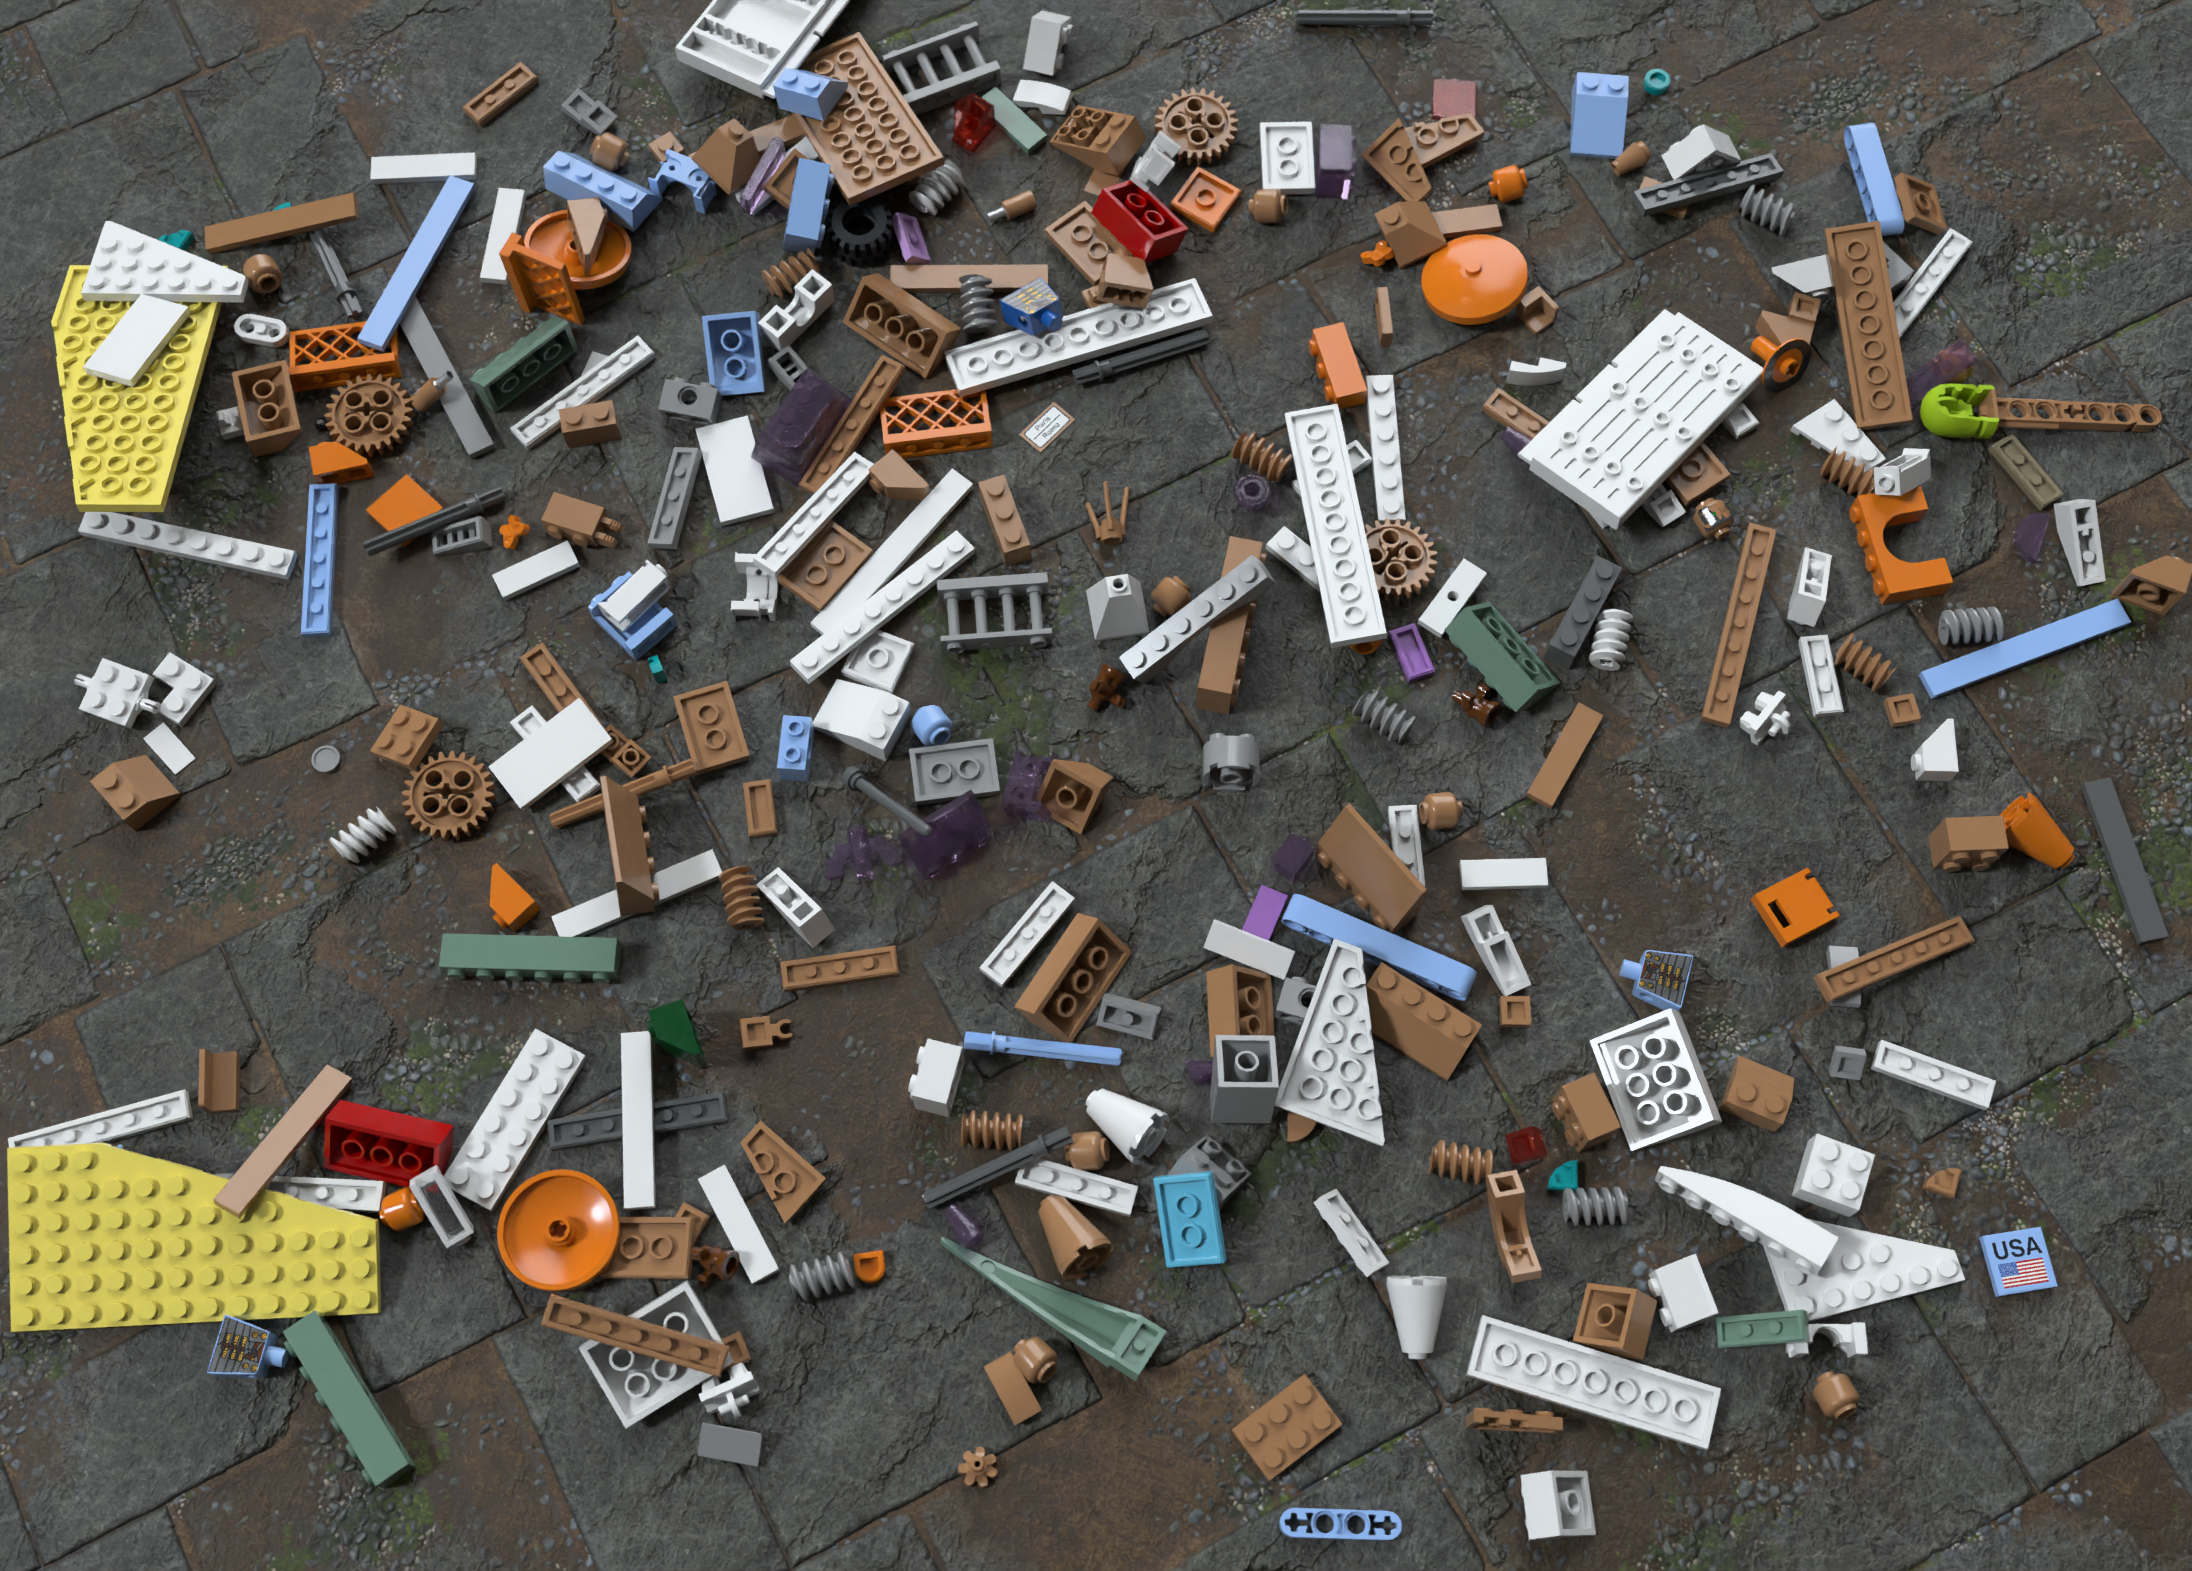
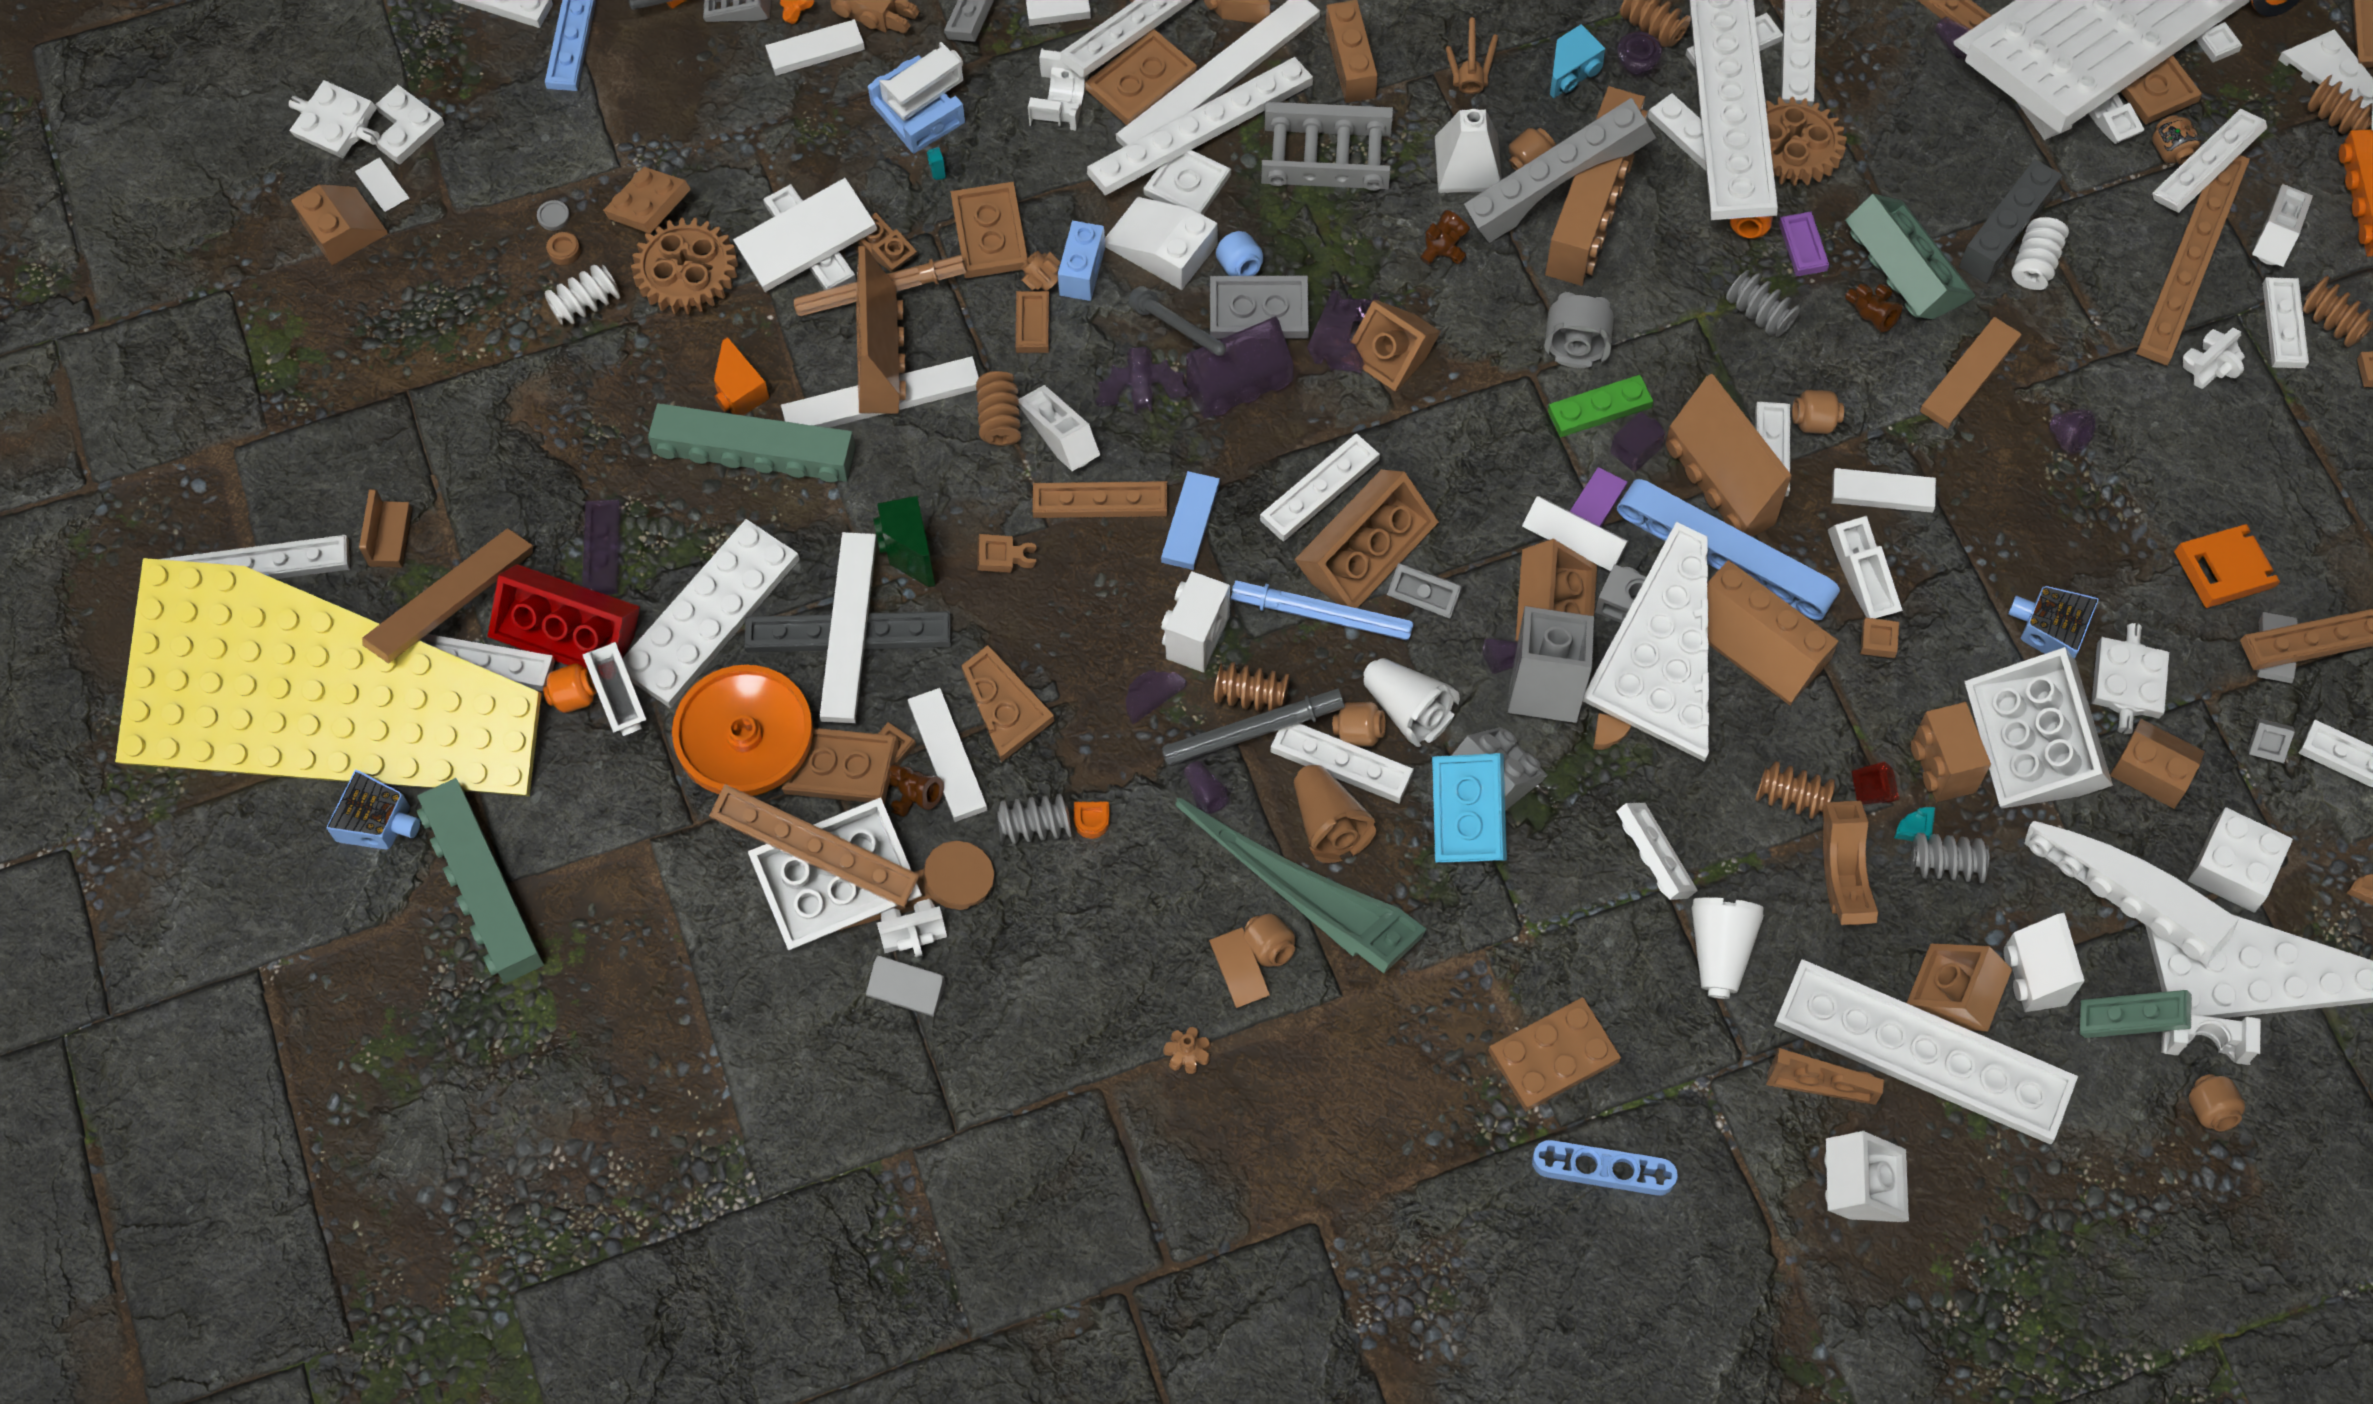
camera: 10 degrees right, 5 degrees down
(339, 790) = (563, 248): none -> medium nougat tile
(412, 1070) = (601, 546): none -> clear purple tile
(552, 678) = (813, 156): medium nougat tile -> none
(761, 762) = (1040, 271): none -> medium nougat gear
(762, 1336) = (958, 875): none -> medium nougat tile
(906, 1142) = (1151, 691): none -> clear purple tile
(920, 978) = (1190, 520): none -> light blue tile
(1198, 503) = (1575, 58): none -> medium azure slope
(1256, 826) = (1600, 406): none -> bright green plate
(1459, 587) = (1865, 180): white tile -> none
(1655, 799) = (2073, 429): none -> clear purple brick
(1726, 1020) = (2130, 678): none -> white plate
(1743, 536) = (2209, 160): none -> white tile

